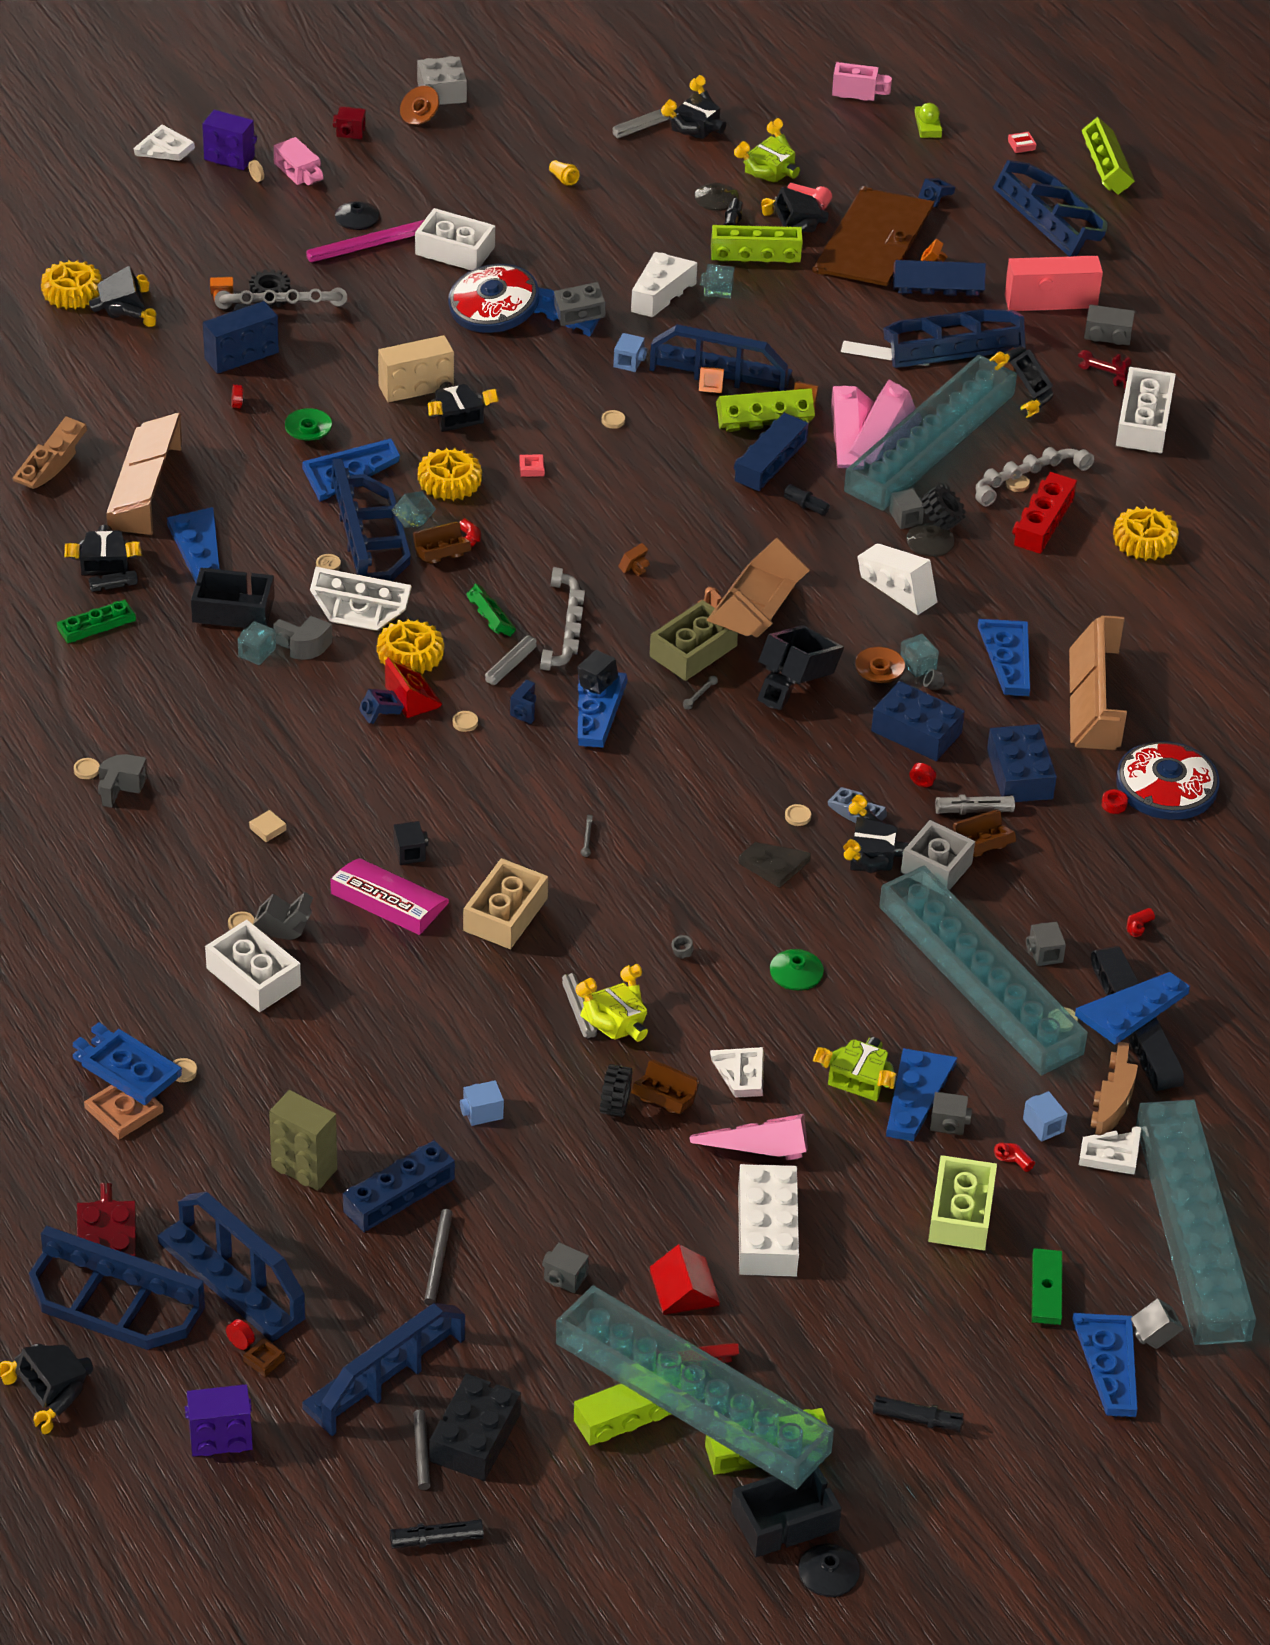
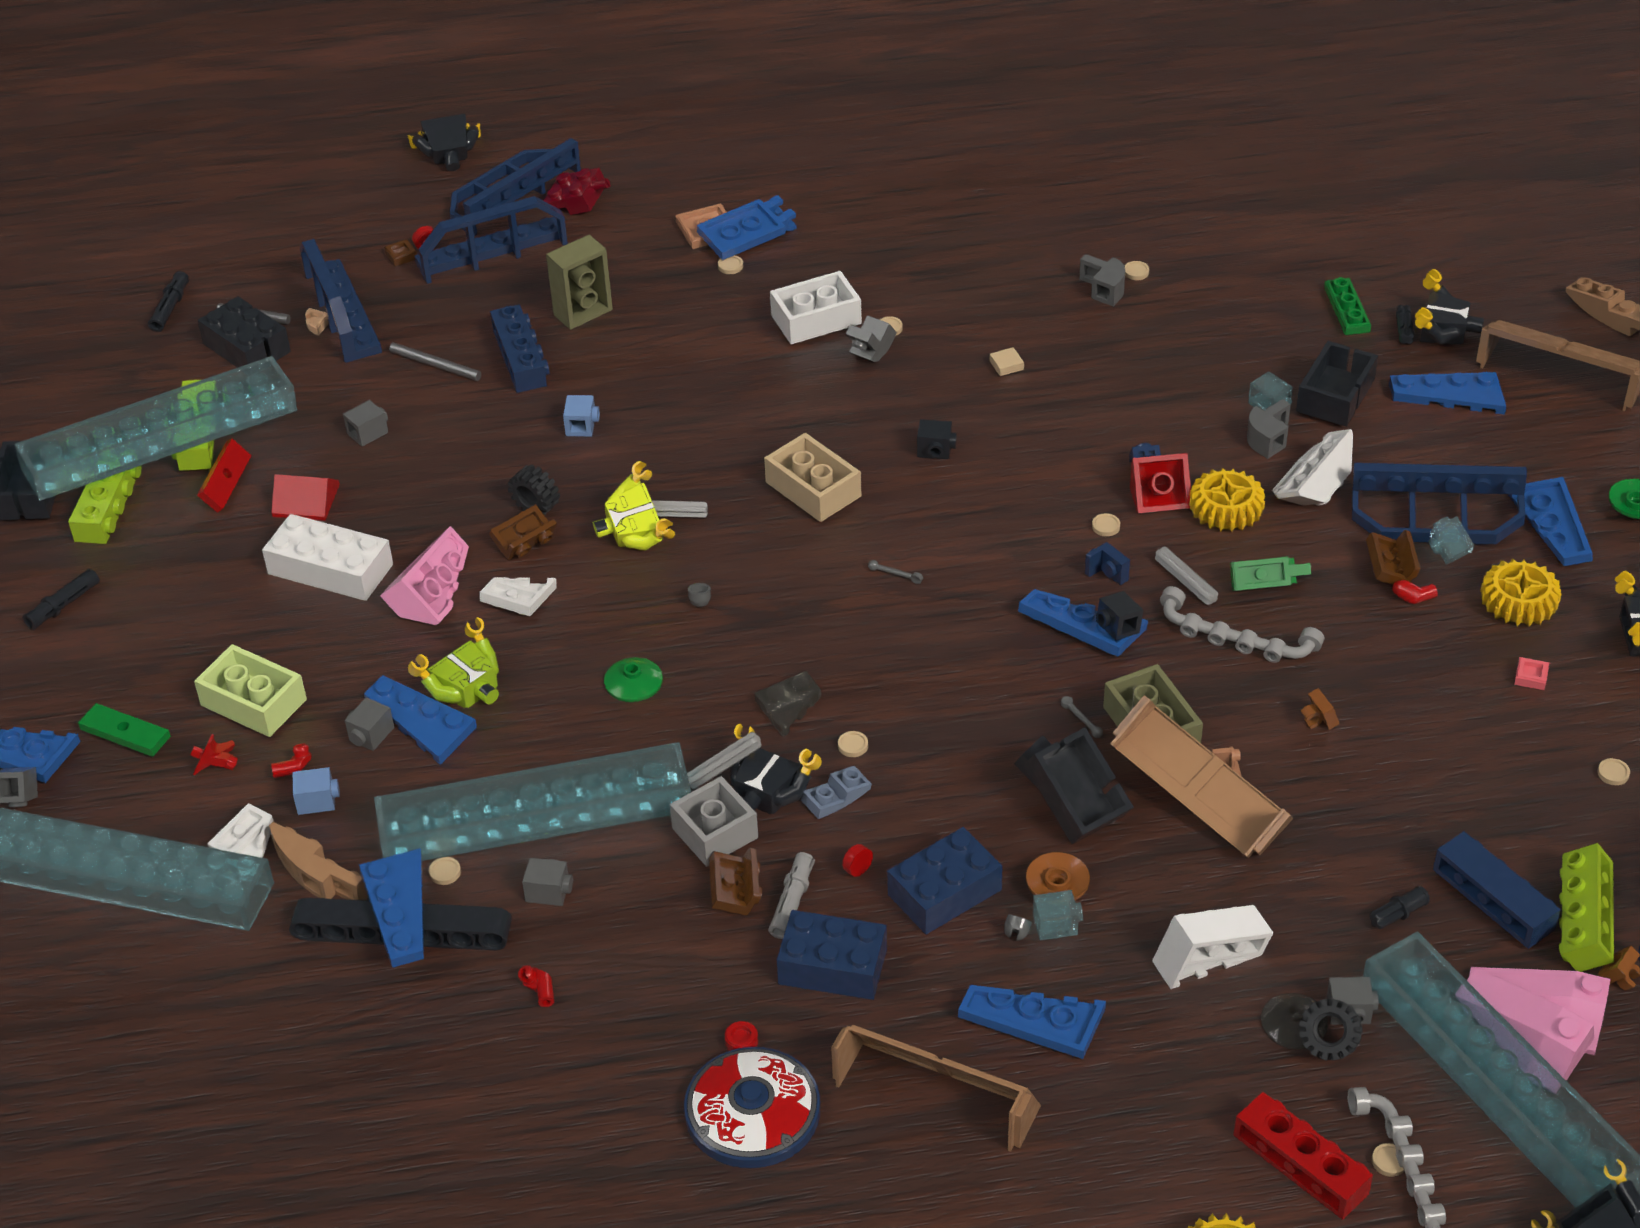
camera: 115 degrees right, 0 degrees up
(219, 1420) = (340, 203): dark purple brick -> none
(387, 895) = (876, 416): dark pink slope -> none
(412, 1387) = (316, 321): none -> light nougat tile
(876, 854) = (724, 760): none -> light grey axle
(1041, 1205) = (214, 754): none -> red piece

